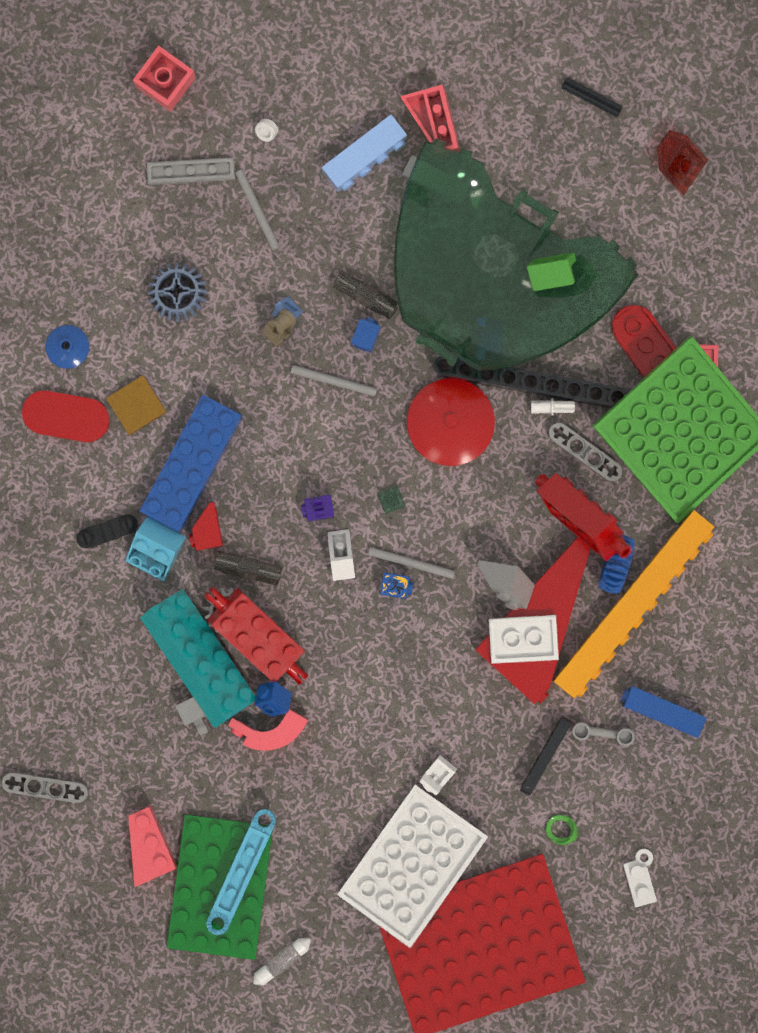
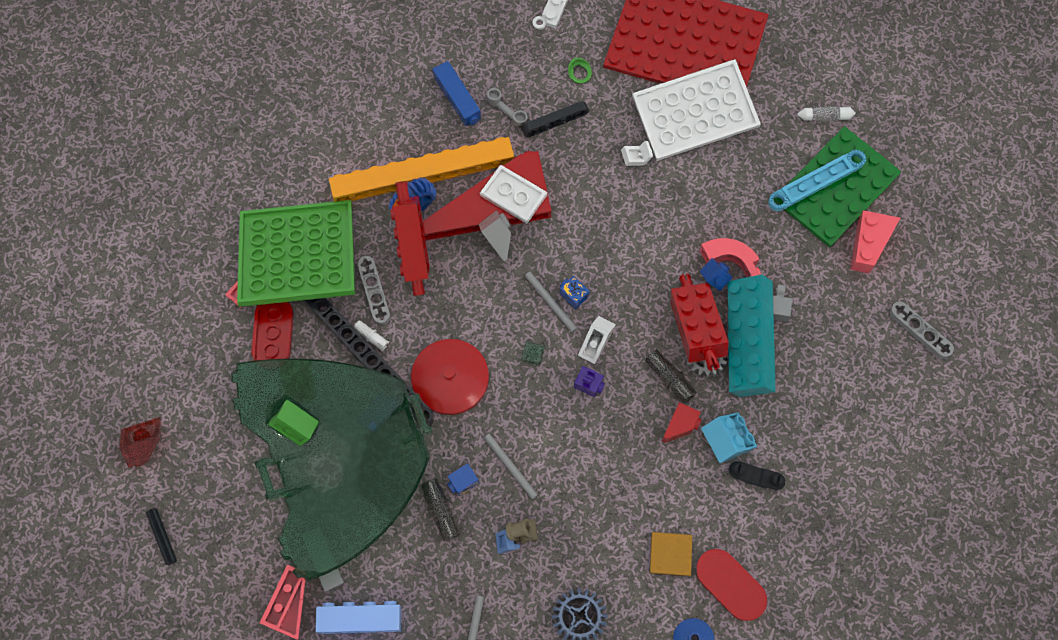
camera: 145 degrees left, 15 degrees down
(191, 464) = (660, 478): blue brick -> none

